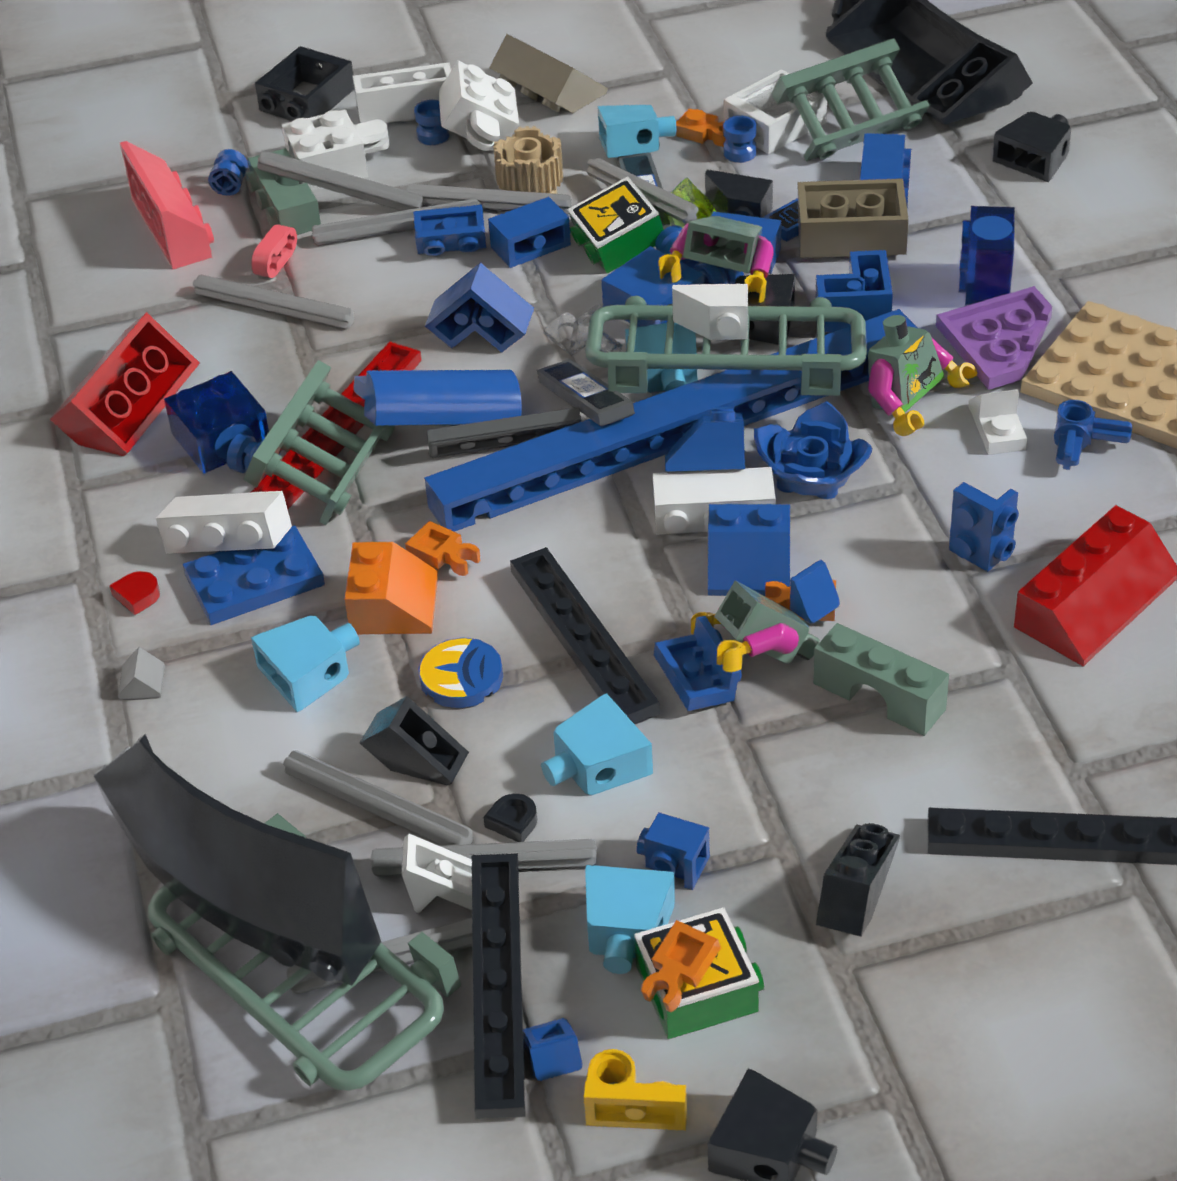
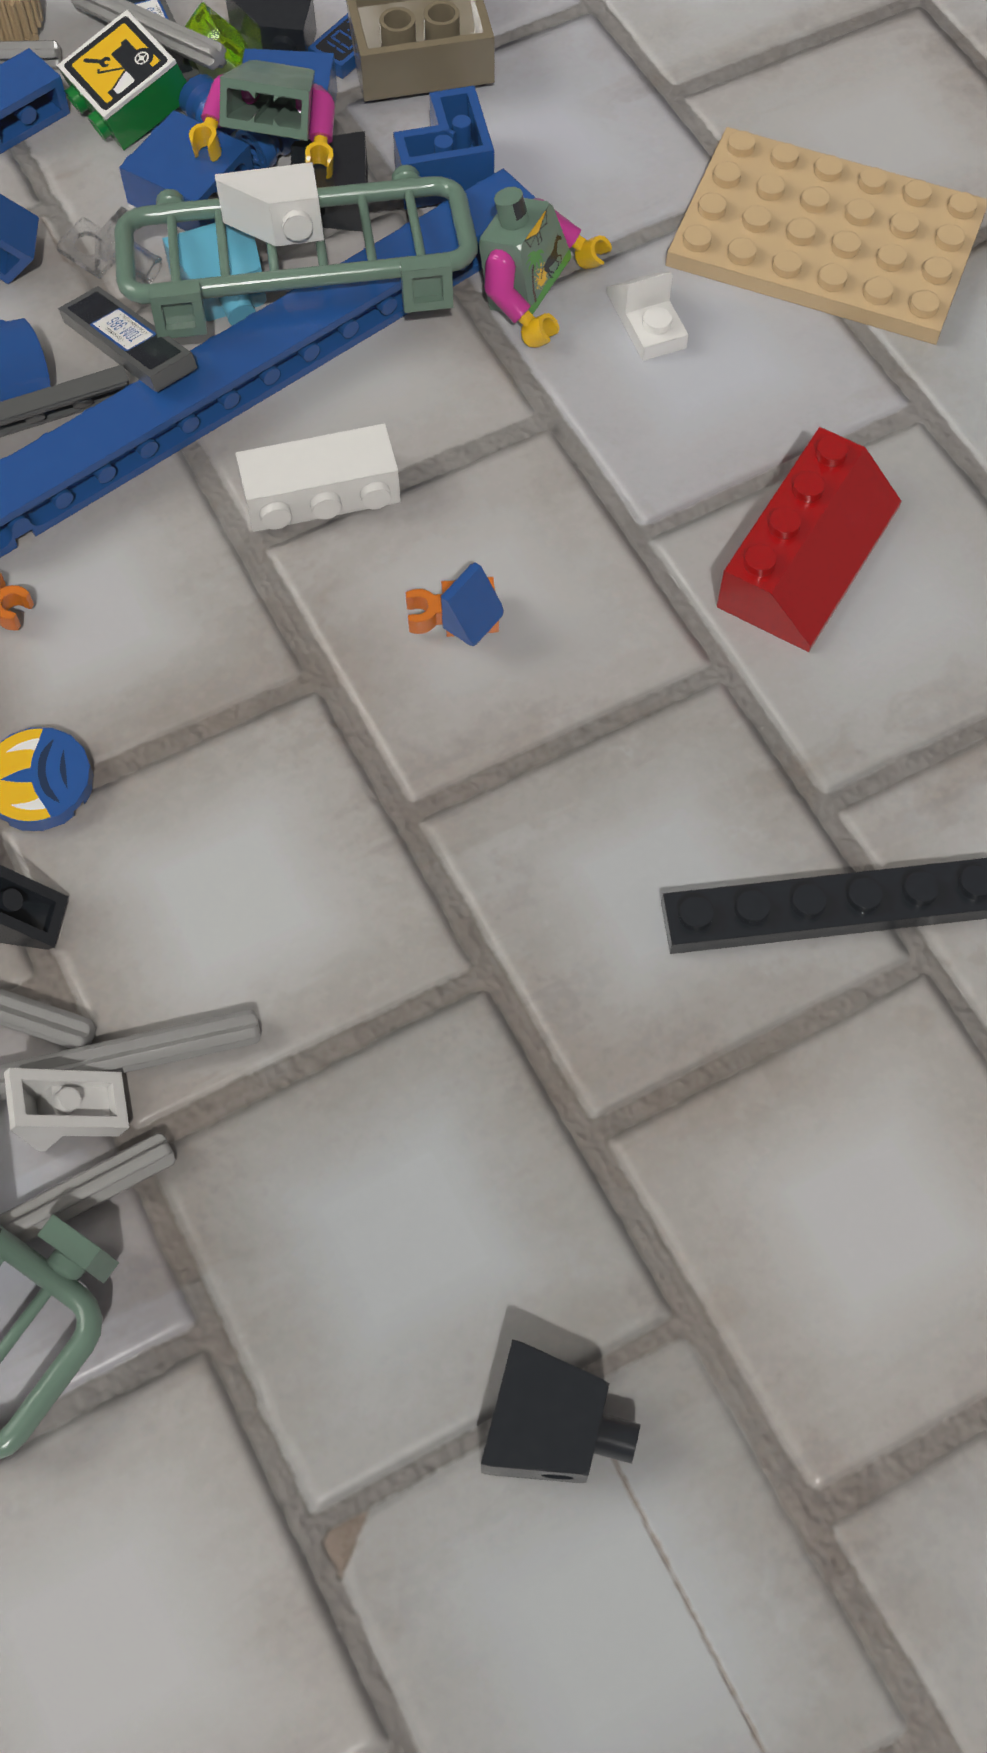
camera: 15 degrees left, 20 degrees up
(497, 987) = (166, 1264): black plate -> none
(512, 817) = (142, 987): black tile -> none
(552, 1049) = (251, 1330): blue slope -> none
(583, 634) = (189, 705): black plate -> none
(599, 749) = (235, 873): medium azure torso -> none
(624, 904) = (313, 1119): medium azure torso -> none
(627, 1102) = (402, 1401): yellow plate -> none
(675, 847) = (359, 1008): blue brick -> none
(681, 959) = (405, 1201): orange plate -> none
(693, 669) = (343, 730): blue bracket -> none
(710, 443) = (300, 400): blue slope -> none
(725, 991) = (421, 1191): piece -> none
(748, 546) = (375, 544): blue slope -> none
(761, 628) = (409, 666): sand green torso -> none
(813, 455) = (433, 392): blue brick -> none
(856, 879) = (595, 1014): black slope -> none
(910, 687) = (607, 721): sand green arch -> none
(983, 526) = (661, 477): blue bracket -> none
(986, 253) = (599, 79): clear blue brick -> none
(998, 334) = (626, 187): medium lavender plate -> none
(1077, 428) = (748, 311): blue axle -> none

